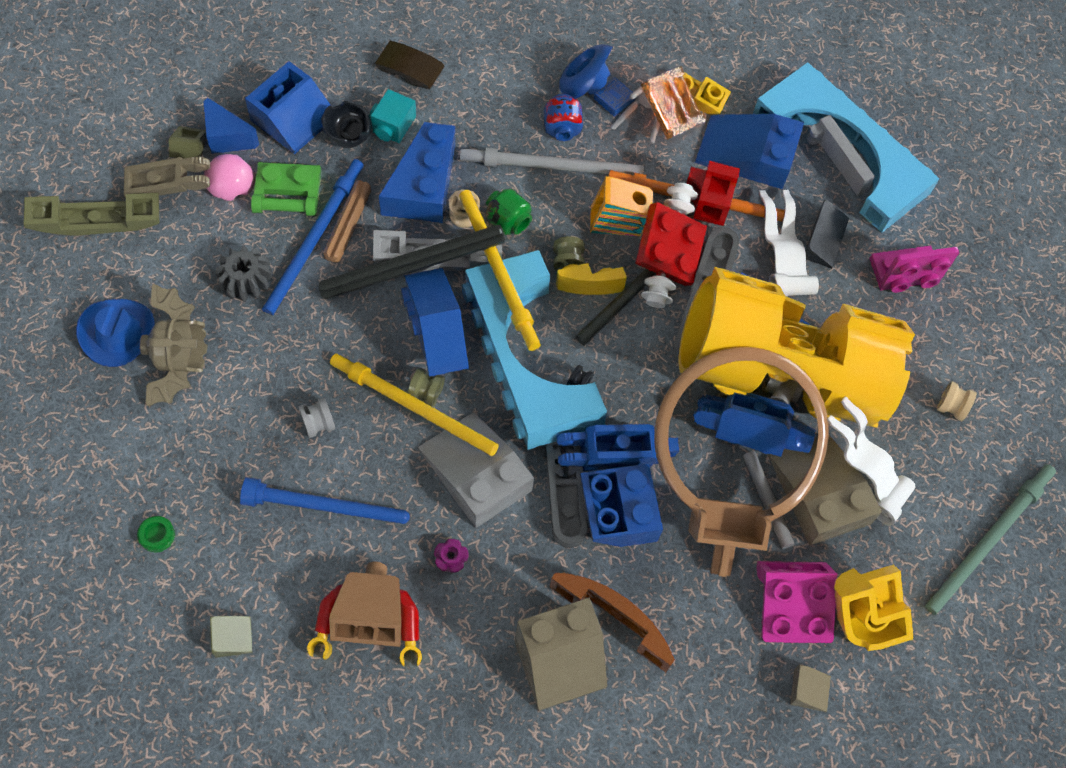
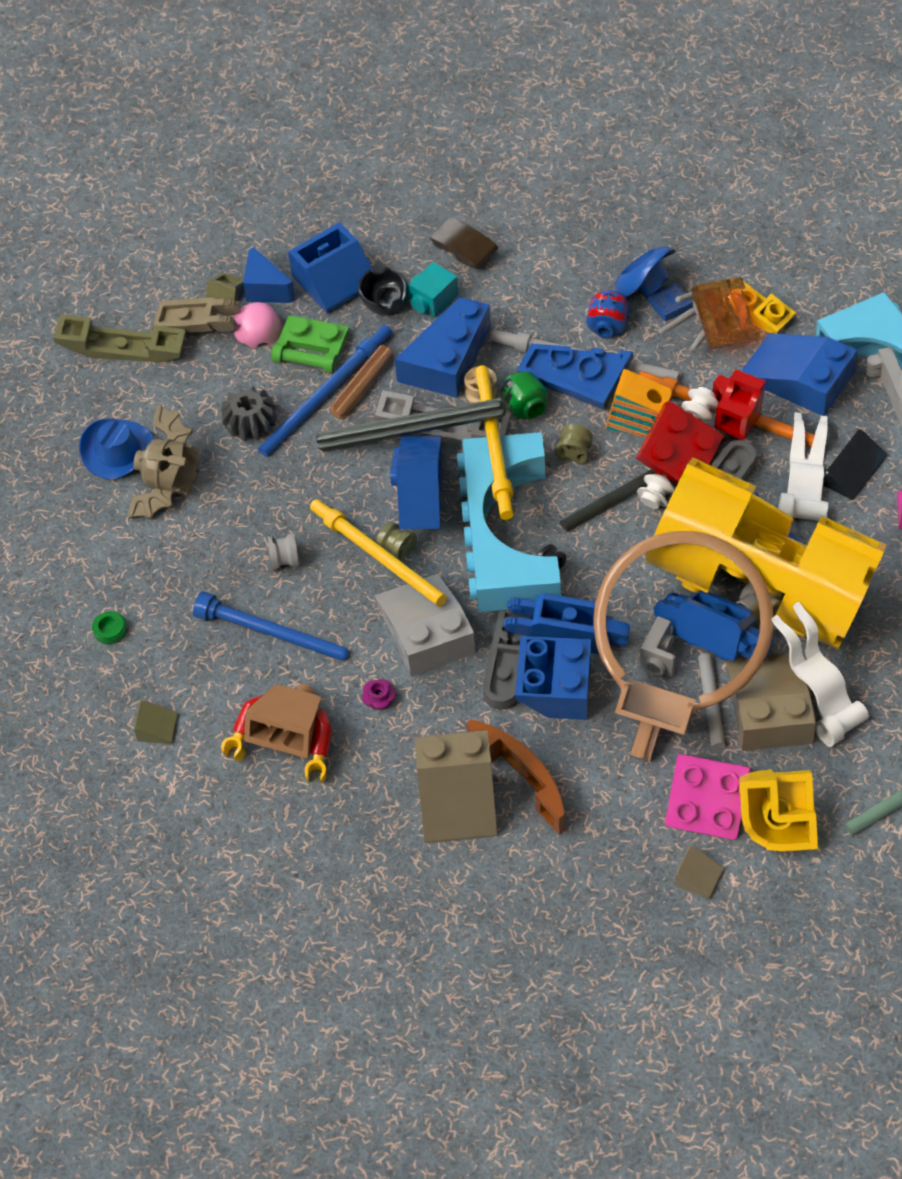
camera: 25 degrees right, 10 degrees down
(550, 181) = (577, 373): none -> blue wing
(580, 280) = (577, 469): yellow slope -> none
(705, 455) = (656, 648): none -> light grey bracket

